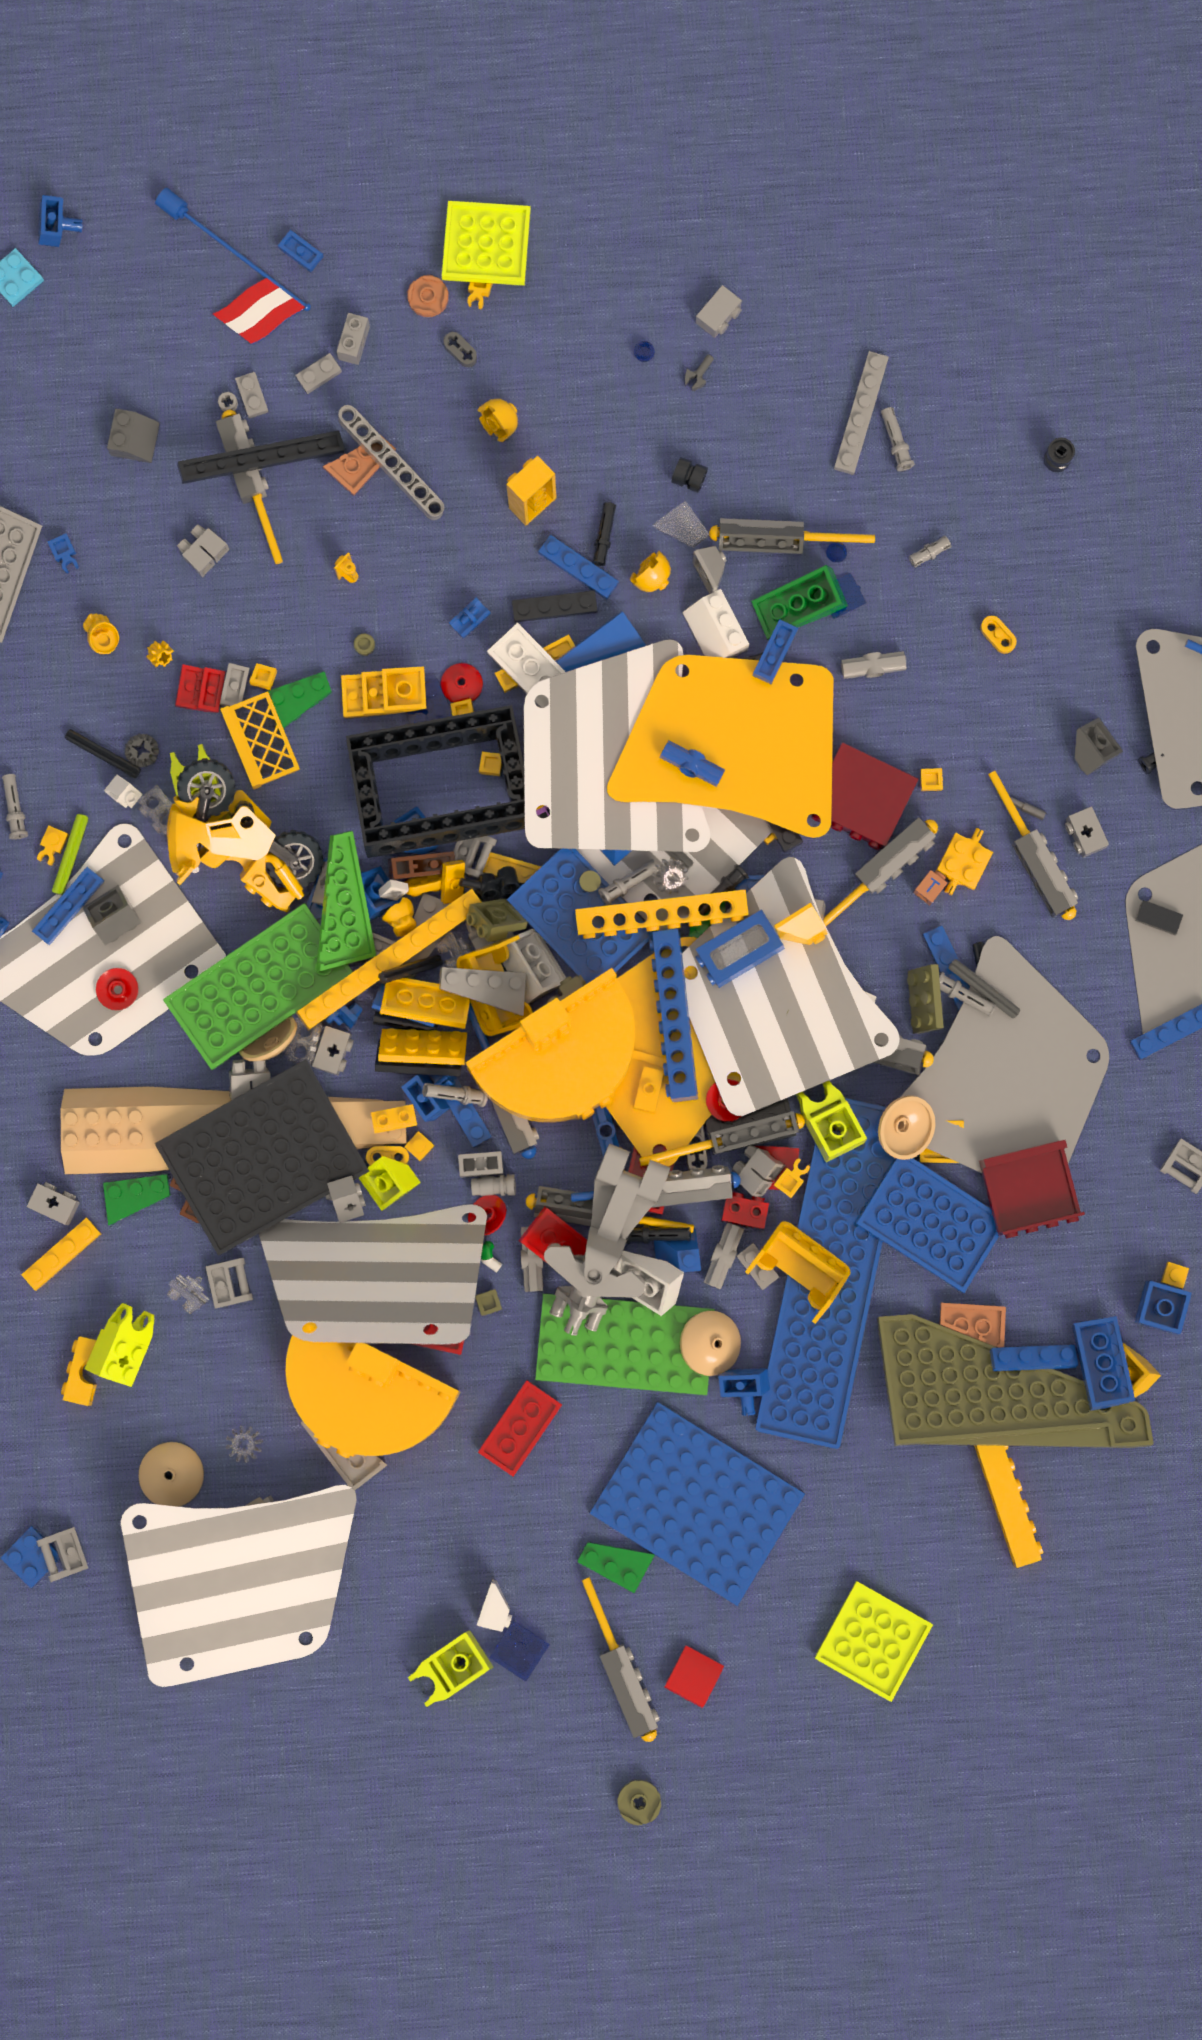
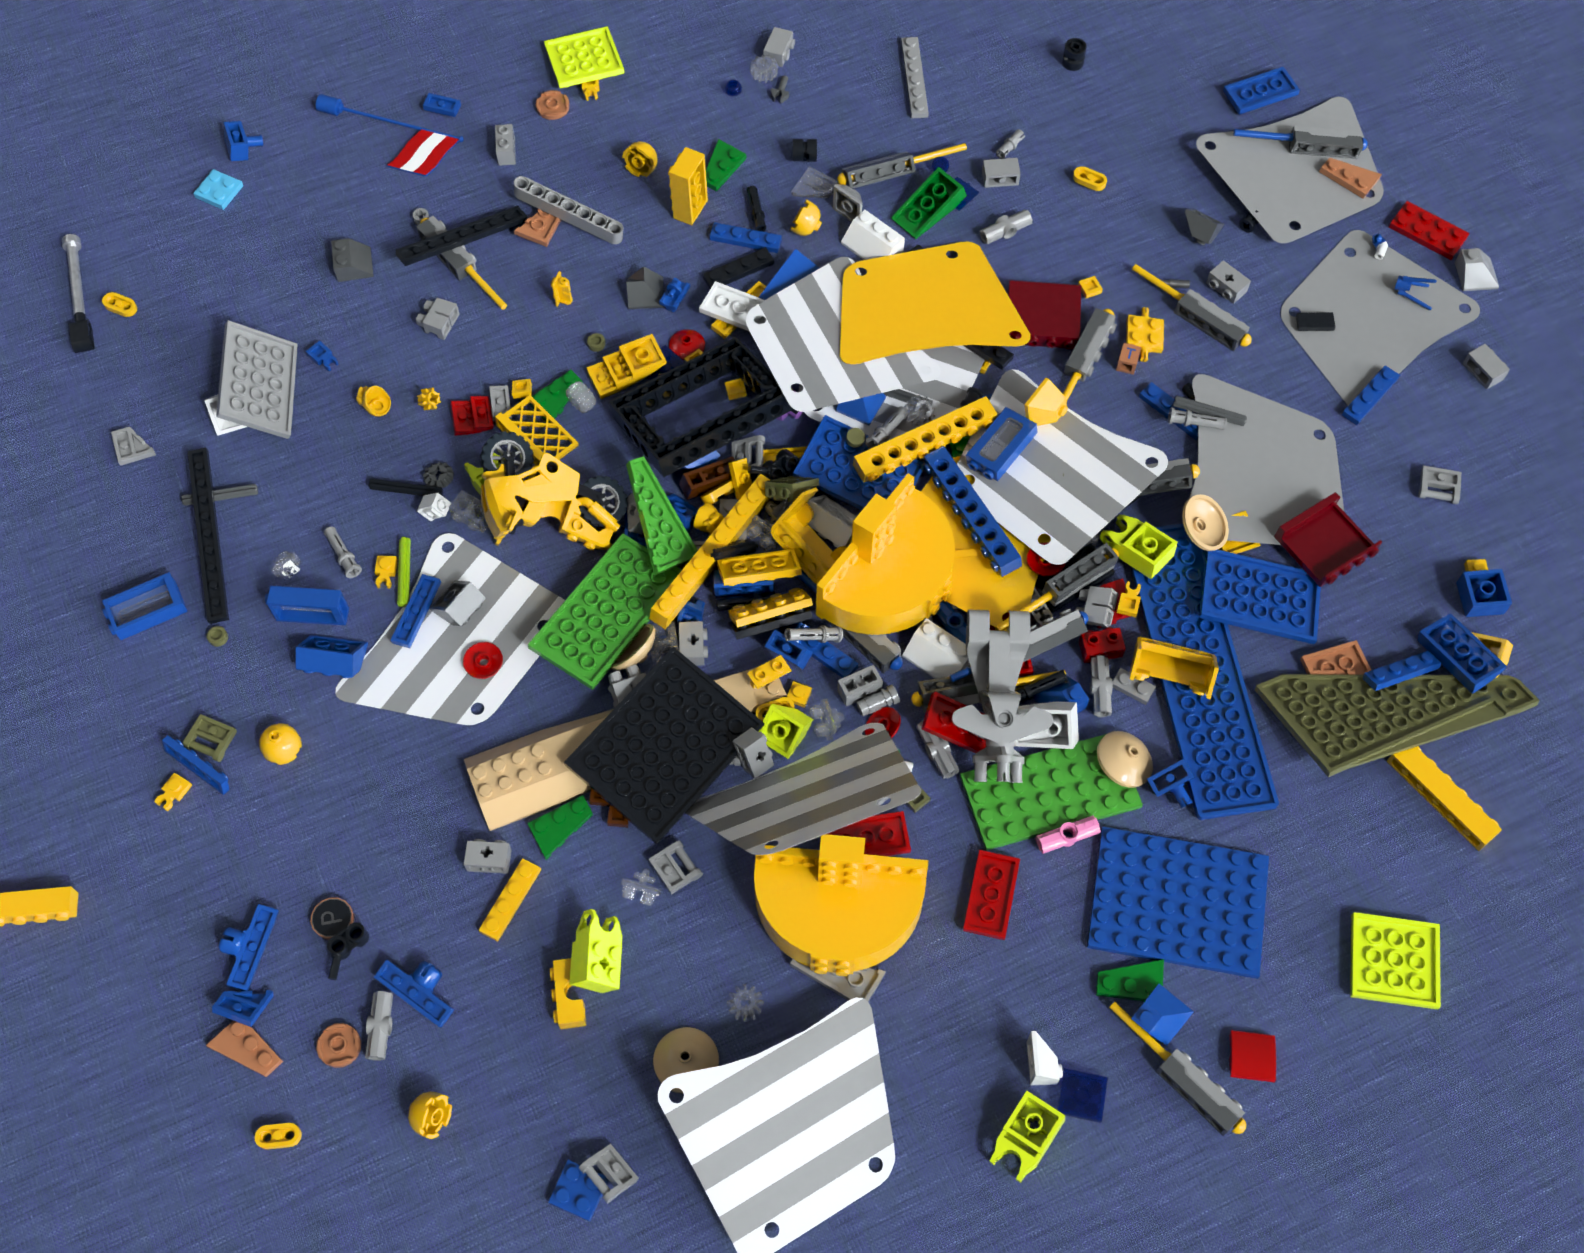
camera: 20 degrees left, 20 degrees down
(251, 395) = (438, 206): light grey plate -> none
(318, 373) = (486, 177): light grey plate -> none
(320, 715) = (580, 397): none -> clear gear
(393, 890) = (694, 500): white plate -> none
(434, 1176) = (829, 717): none -> clear hips
(440, 596) = (644, 289): none -> dark grey slope
(457, 352) = (591, 129): dark grey beam -> none
(488, 987) = (805, 538): light grey wing -> none
(573, 1156) = (936, 651): none -> white slope
(590, 456) = (723, 164): none -> green wing
(604, 1398) = (1056, 839): none -> bright pink piece
(625, 1607) = (1162, 1014): none -> blue slope
(643, 1814) = (1250, 1204): olive plate -> none
(649, 1089) = (977, 574): yellow plate -> none
(687, 330) = (764, 68): none -> clear gear
(692, 763) = (901, 321): blue piece -> none
(775, 651) = (927, 238): blue plate -> none
(899, 447) = (954, 87): light grey pin -> none
(900, 588) = (1000, 172): none -> light grey brick
(925, 999) = (1167, 431): olive plate -> none

